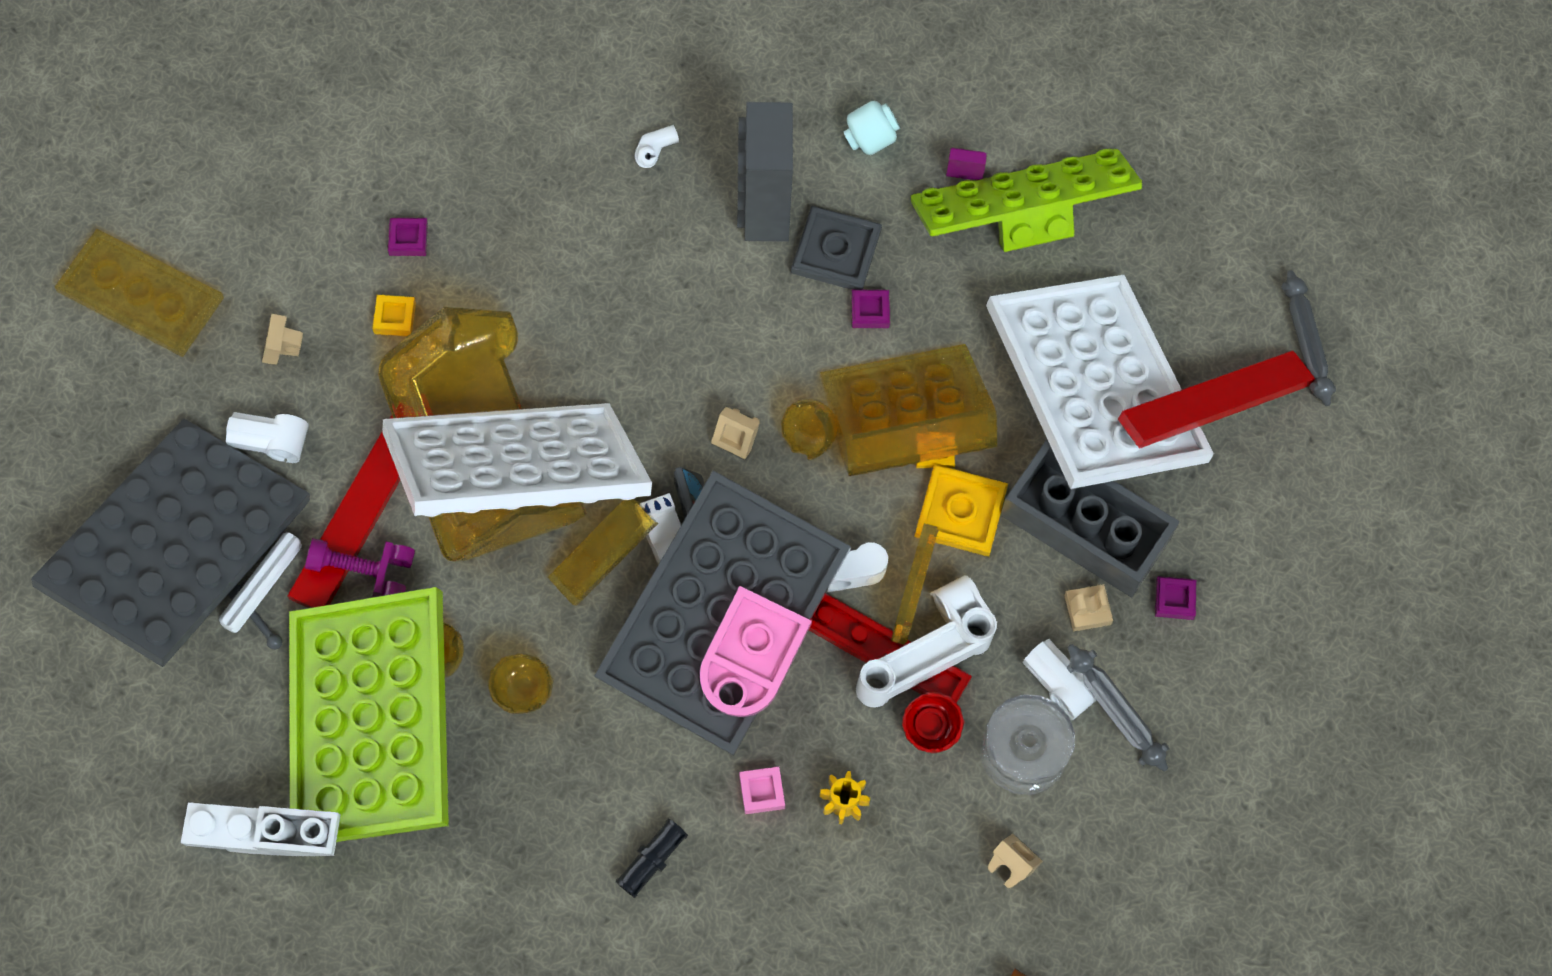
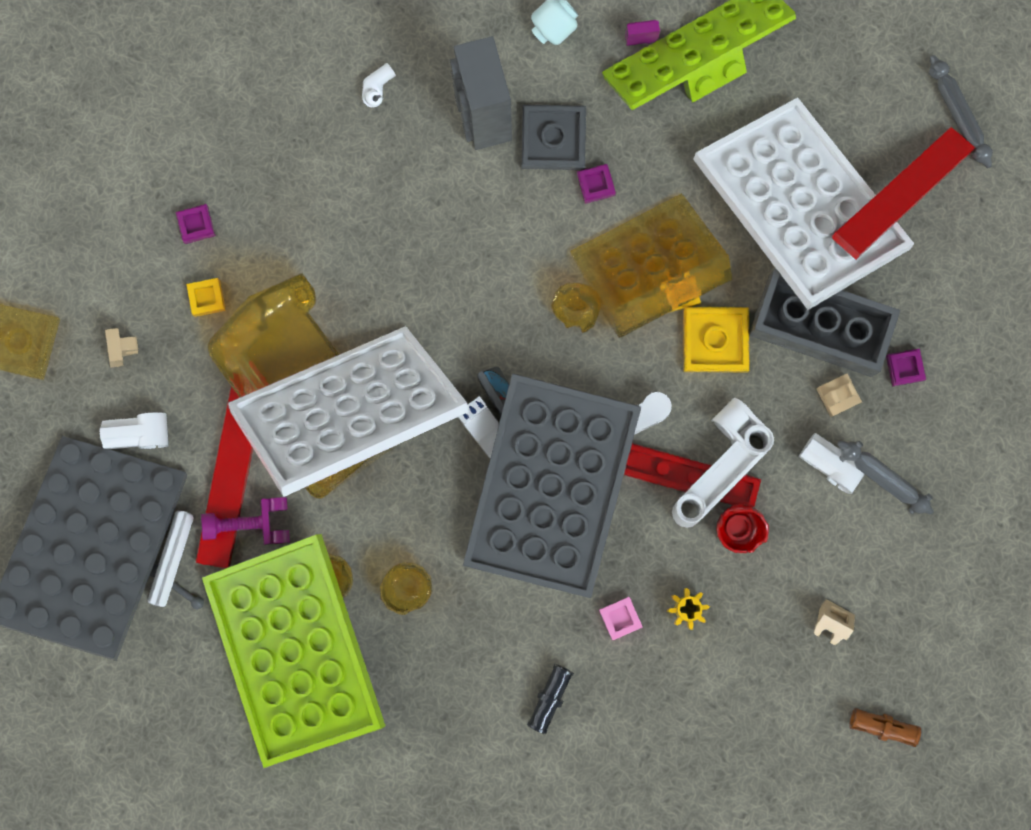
camera: 10 degrees left, 15 degrees up
(261, 830) = (238, 766): white slope -> none
(602, 550) = (438, 459): clear yellow tile -> none
(735, 432) = (516, 324): tan tile -> none
(753, 651) = (585, 514): bright pink tile -> none
(914, 584) = (697, 417): clear yellow tile -> none
(1032, 721) = (840, 519): clear wheel -> none

